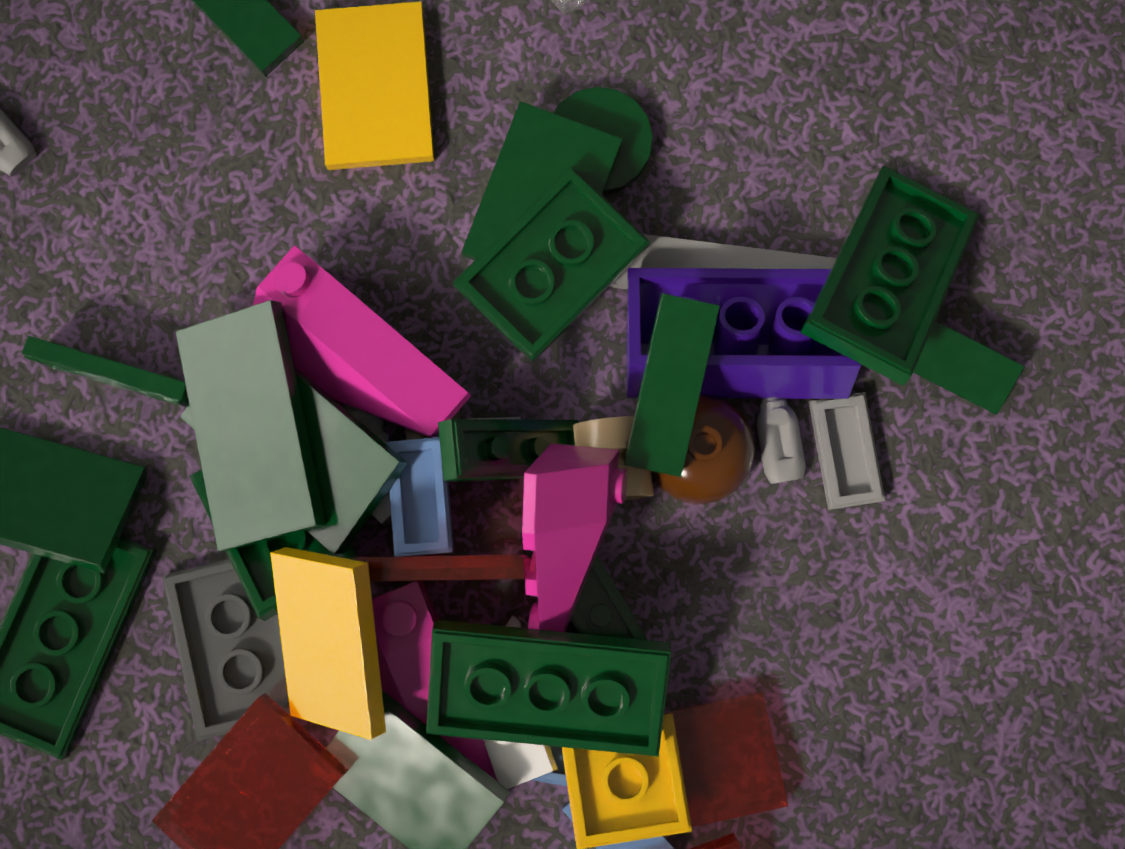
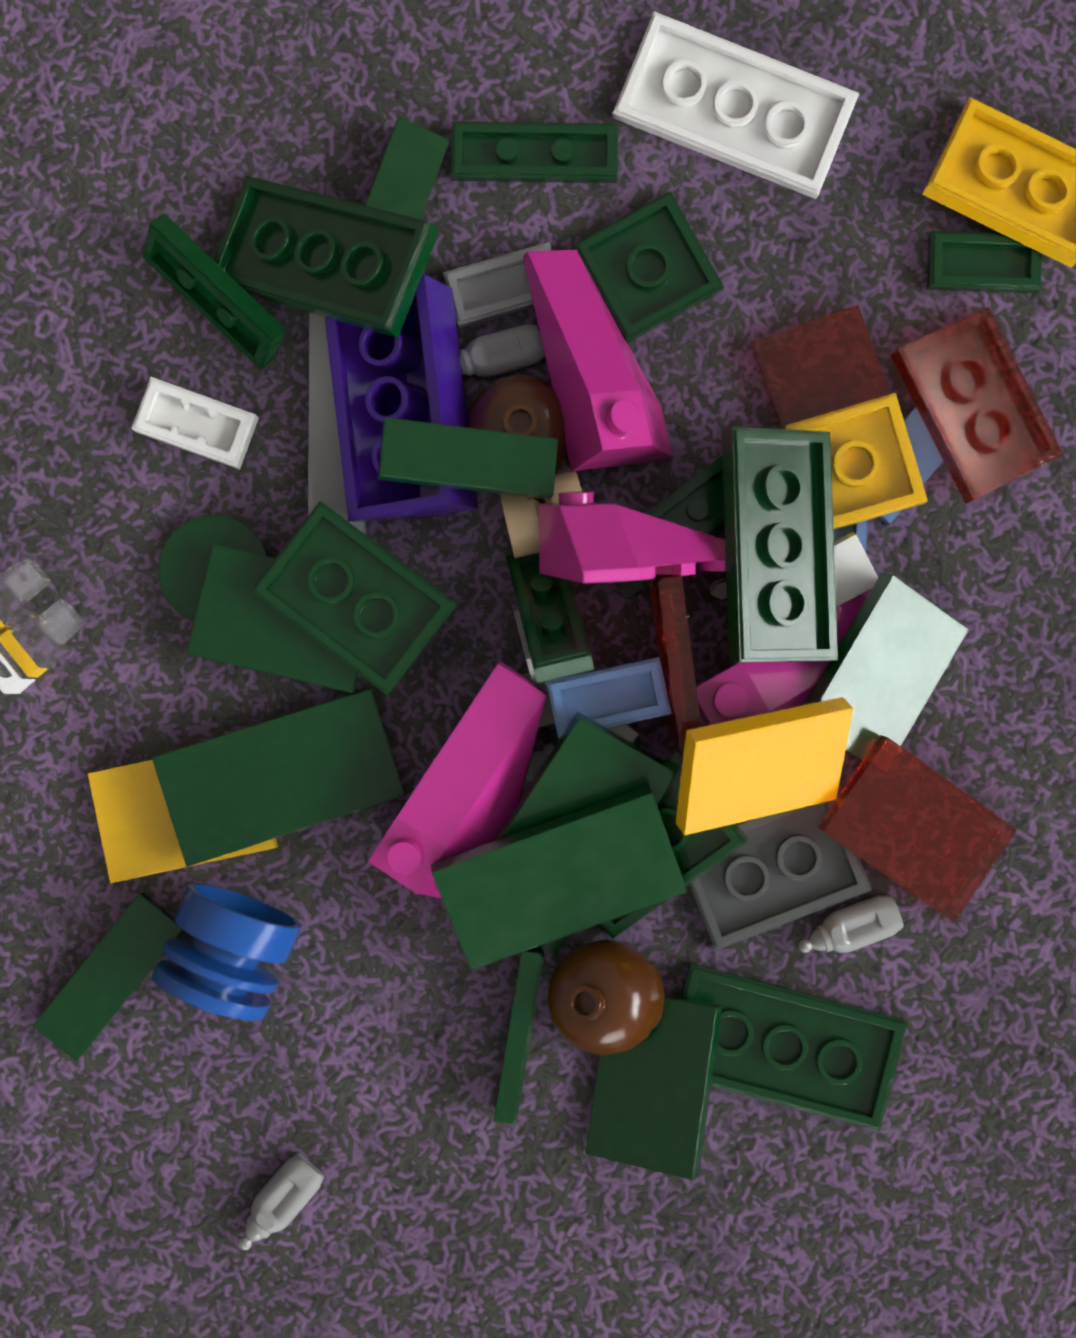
camera: 105 degrees left, 5 degrees up
(131, 460) = (605, 997): none -> reddish brown cylinder
(164, 720) = (856, 926): none -> light grey piece
(228, 103) = (222, 965): none -> blue wheel
(390, 174) = (278, 777): none -> dark green tile
(742, 138) = (195, 423): none -> white plate
(748, 527) = (599, 384): none -> dark pink wedge
(850, 597) = (649, 267): none -> dark green tile
(868, 168) = (212, 291): none -> dark green tile
(977, 498) = (534, 152): none -> dark green tile
(1006, 708) = (735, 105): none -> white tile

